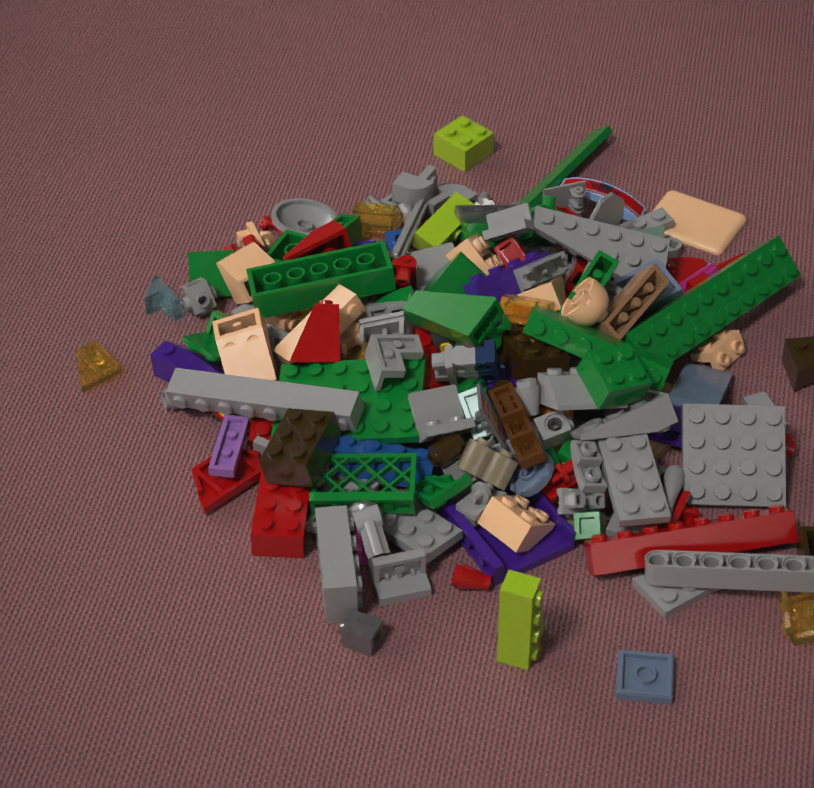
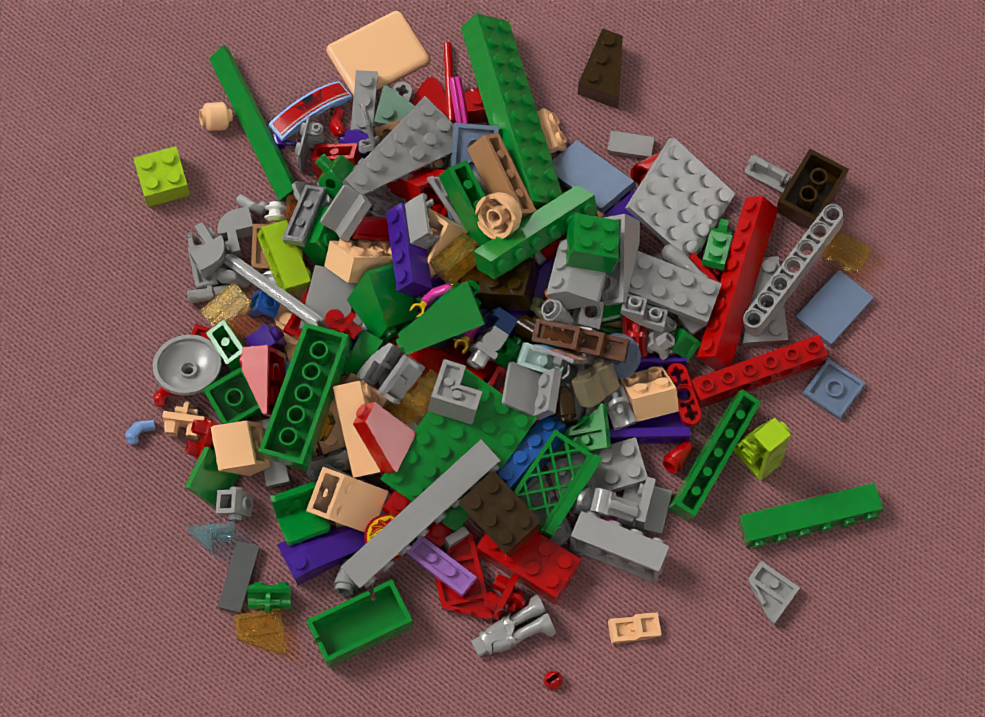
camera: 60 degrees left, 25 degrees up
(128, 354) = (269, 596): none -> green hips
(136, 334) = (239, 577): none -> dark grey tile
(137, 418) = (359, 624): none -> green piece
(171, 583) = (555, 684): none -> red hinge
(198, 526) = (504, 633): none -> light grey piece
(230, 506) = (513, 600): none -> red hips
(232, 223) = (137, 428): none -> medium blue arm
(264, 622) = (634, 628): none -> light nougat slope
(361, 632) = (689, 563): flat silver brick -> none
(379, 716) = (772, 590): none -> light grey wing
(479, 598) = (714, 455): none -> green brick
(487, 712) = (810, 516): none -> green brick
(541, 542) = (694, 408): none -> red beam
(544, 150) = (215, 116): none -> light nougat head
(611, 600) = (759, 371): none -> red brick
(711, 507) = (717, 246): none -> green hinge
(734, 638) = (834, 308): none -> sand blue tile

